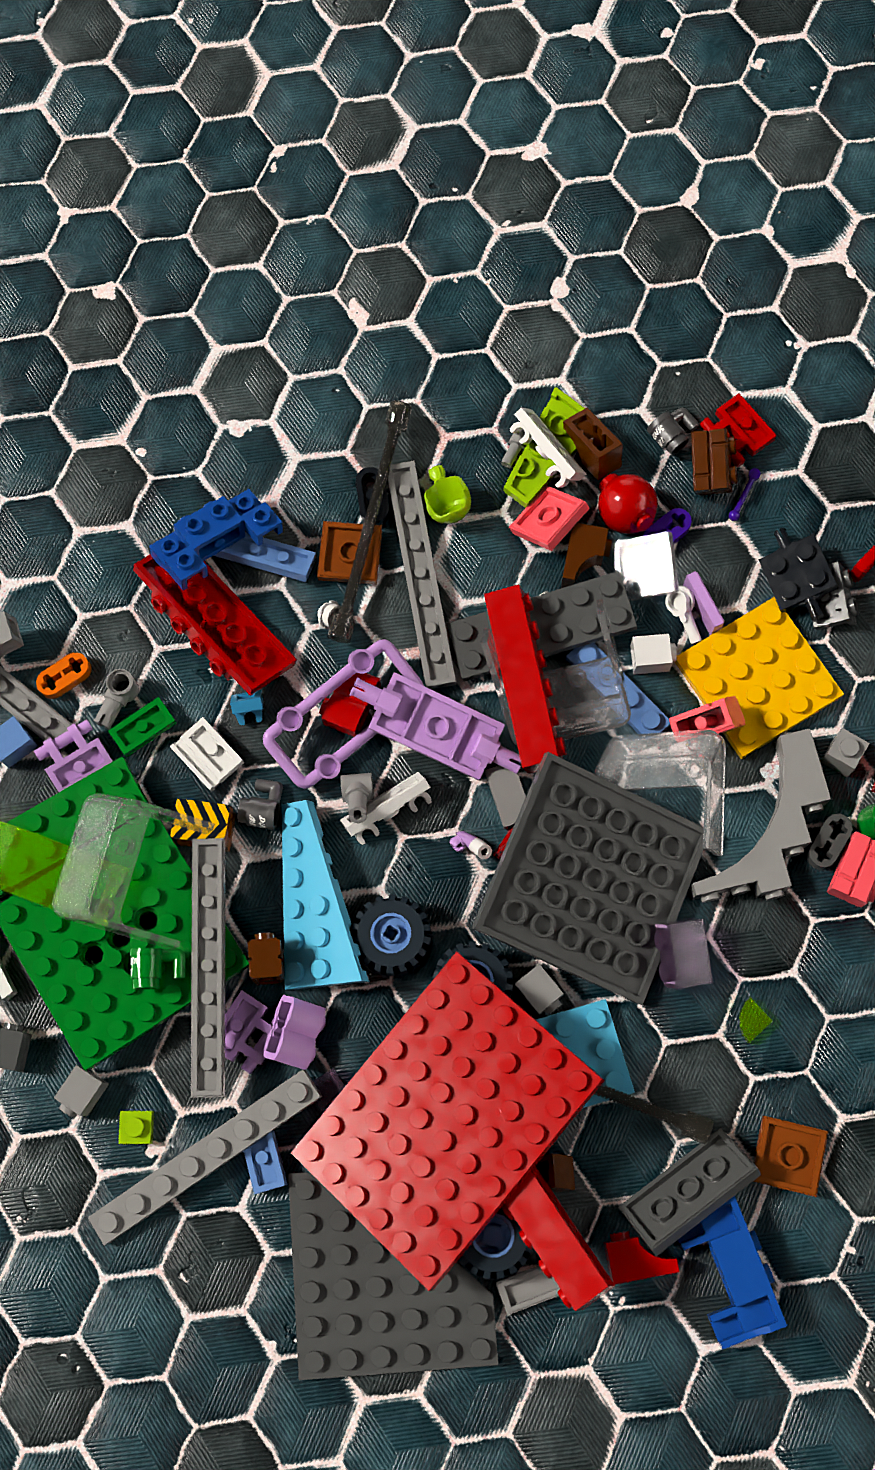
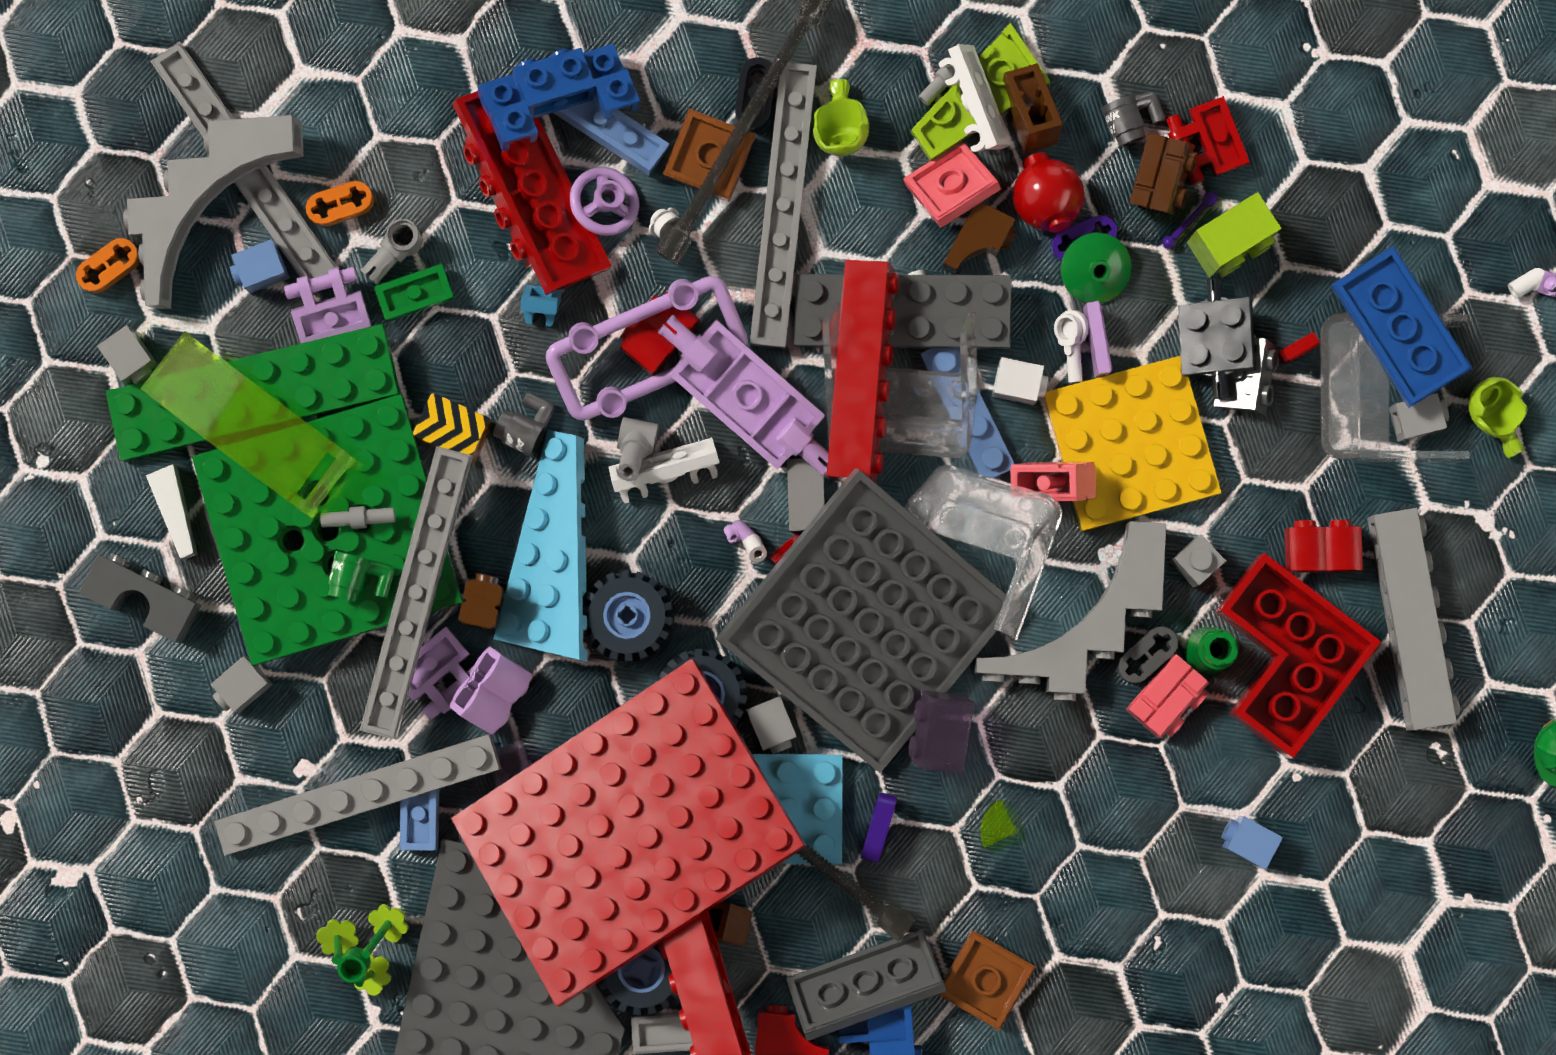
camera: 10 degrees right, 10 degrees up
(104, 859) = (333, 445): clear windscreen -> none
(136, 1127) = (290, 740): lime plate -> none
(143, 917) = (357, 517): none -> light grey bar
(207, 754) = (479, 346): white plate -> none
(244, 1307) = (359, 964): none -> lime plant
(277, 598) = (614, 191): none -> lavender piece
(647, 565) = (1045, 276): clear plate -> none
(656, 1051) = (878, 827): none -> dark purple beam
(701, 547) = (1084, 256): none -> green dish
(785, 491) = (1233, 235): none -> lime brick

